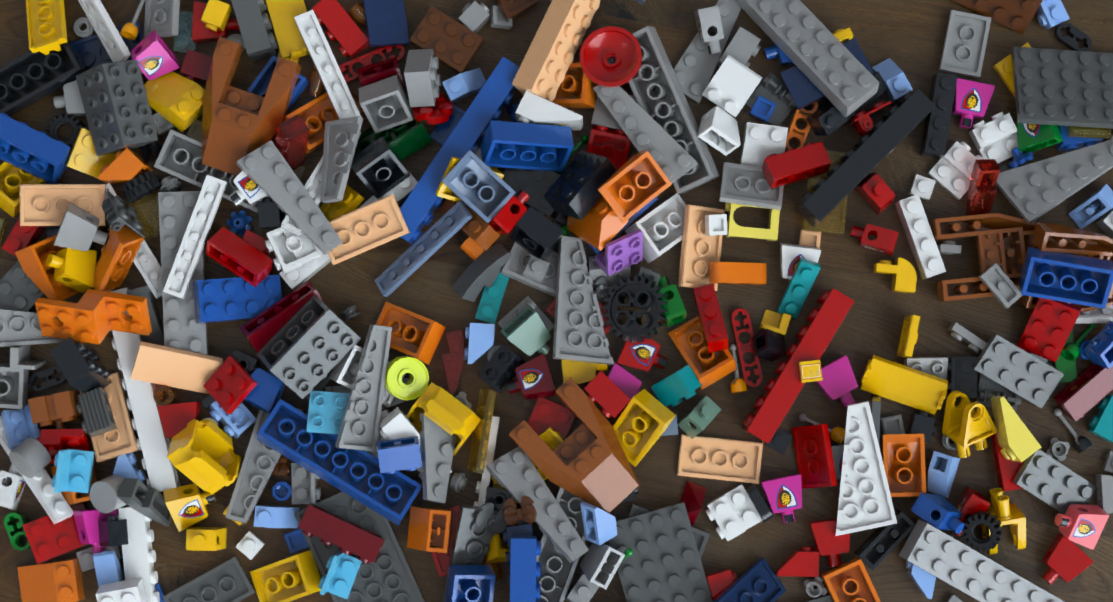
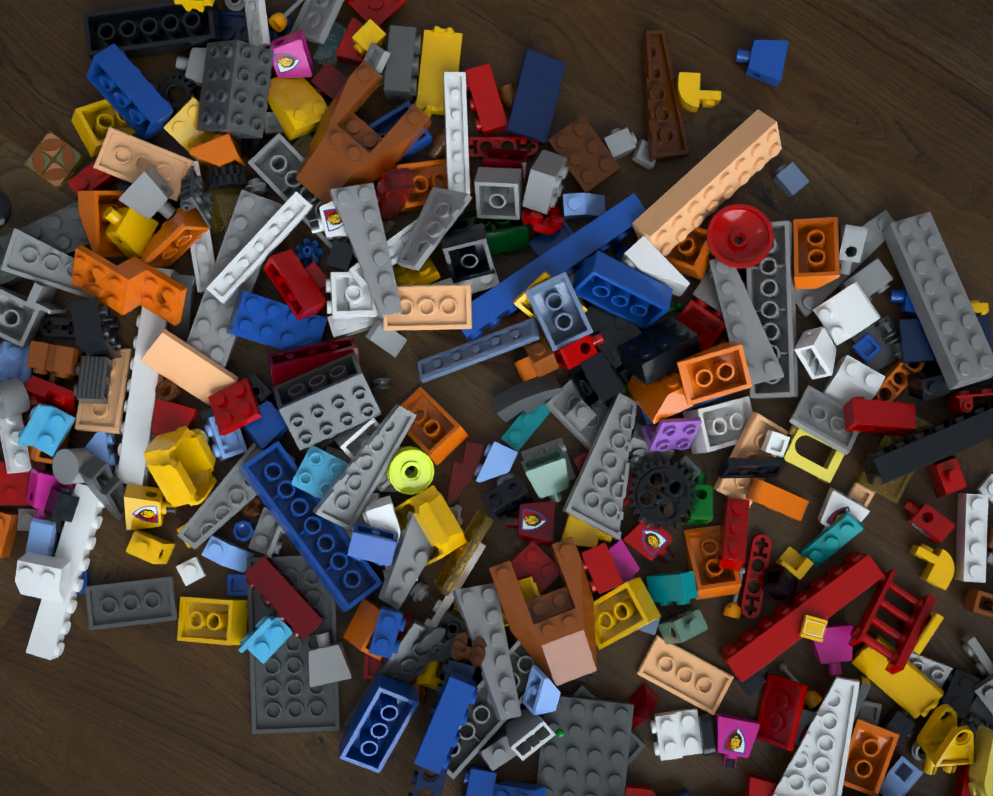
camera: 20 degrees right, 0 degrees up
(229, 28) = (376, 57): none -> light grey plate
(341, 272) = (387, 340): none -> light grey tile
(402, 574) = (328, 662): none -> light grey torso
(442, 525) = (386, 632): none -> blue brick
(682, 43) = (815, 252): none -> orange slope
(703, 254) = (752, 467): none -> black plate
(897, 332) = (913, 623): none -> red fence

